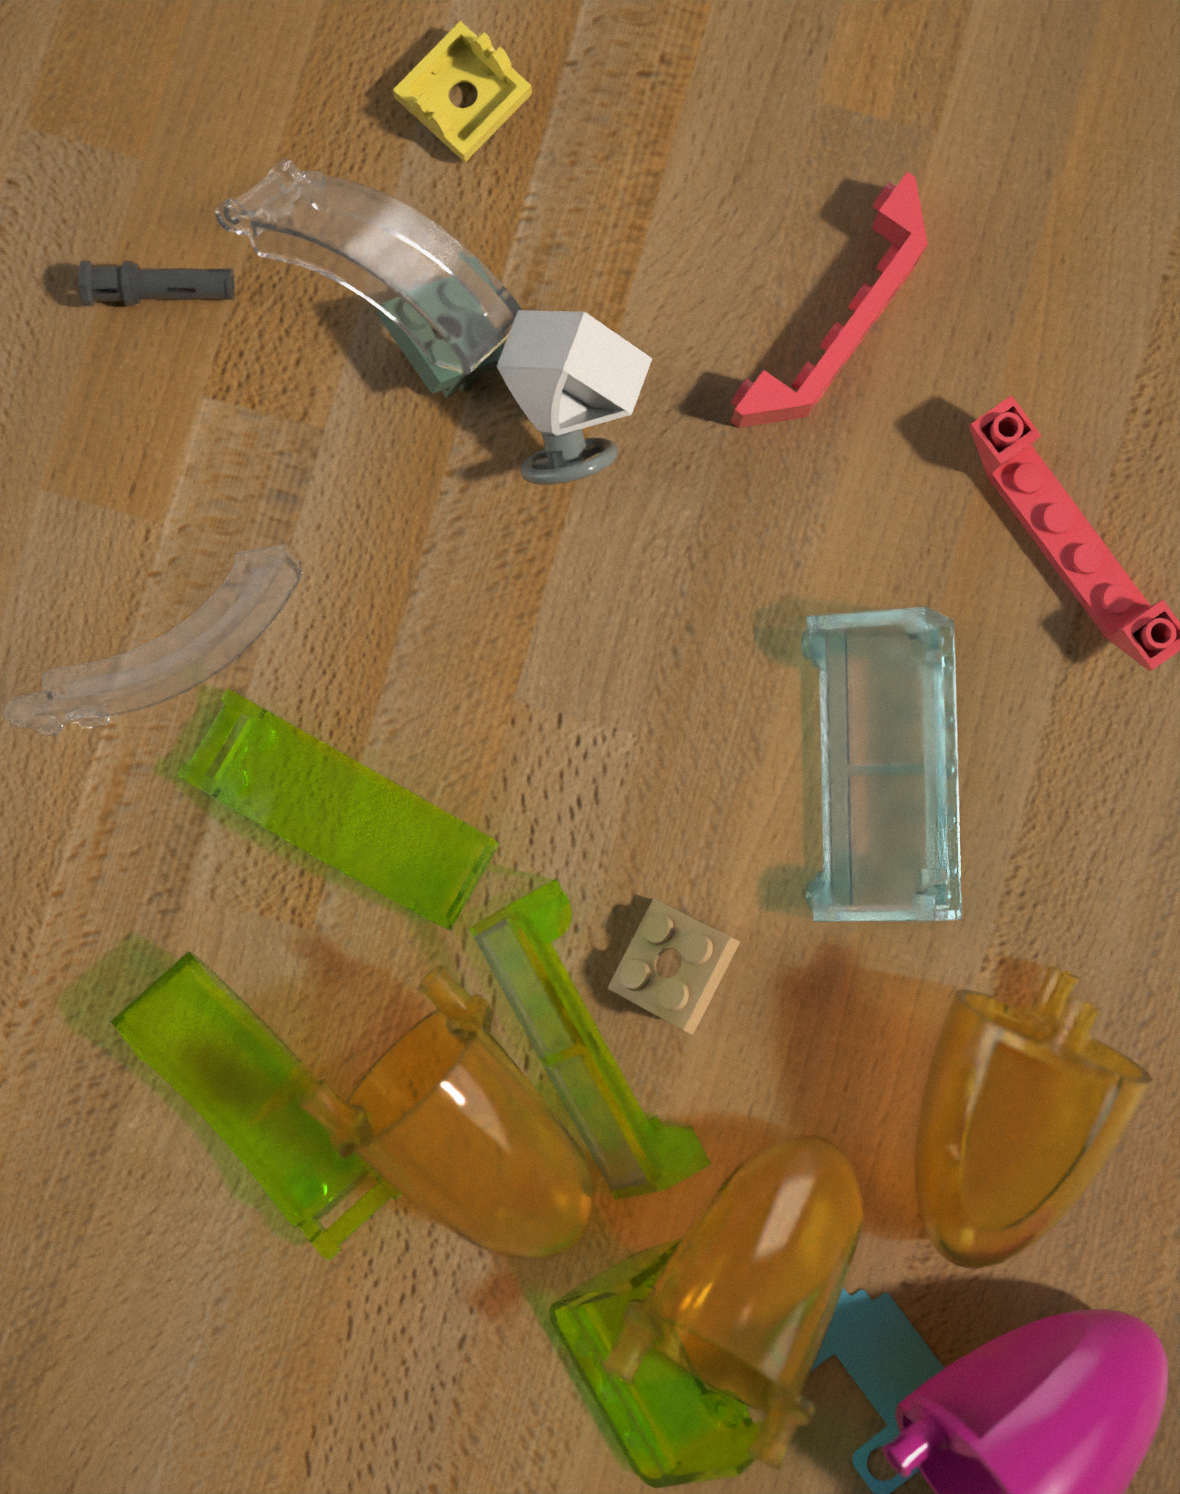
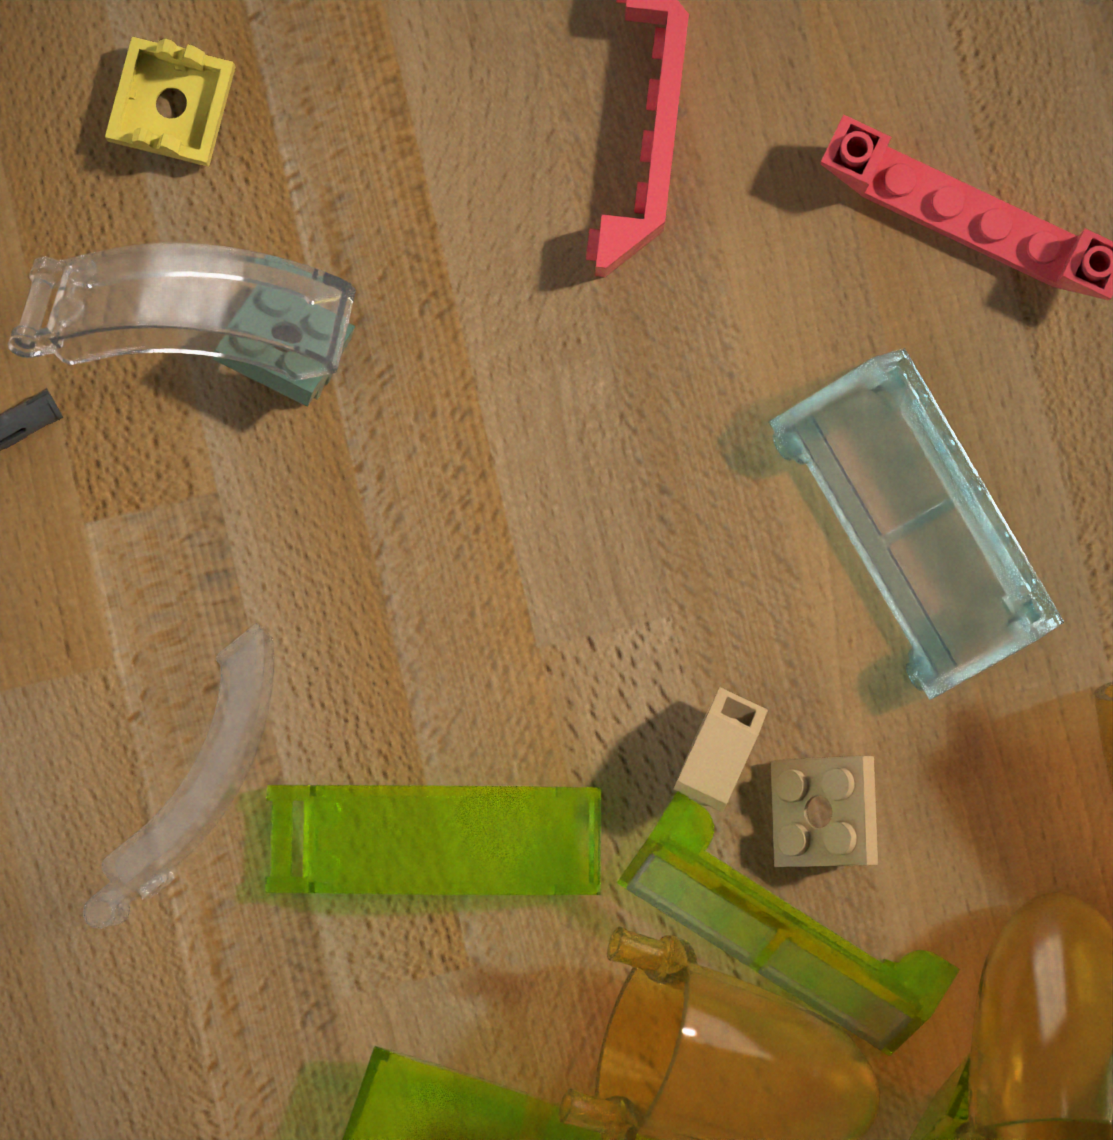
camera: 30 degrees left, 0 degrees up
(566, 378) = (427, 327): white piece -> none
(614, 865) = (720, 749): none -> tan slope

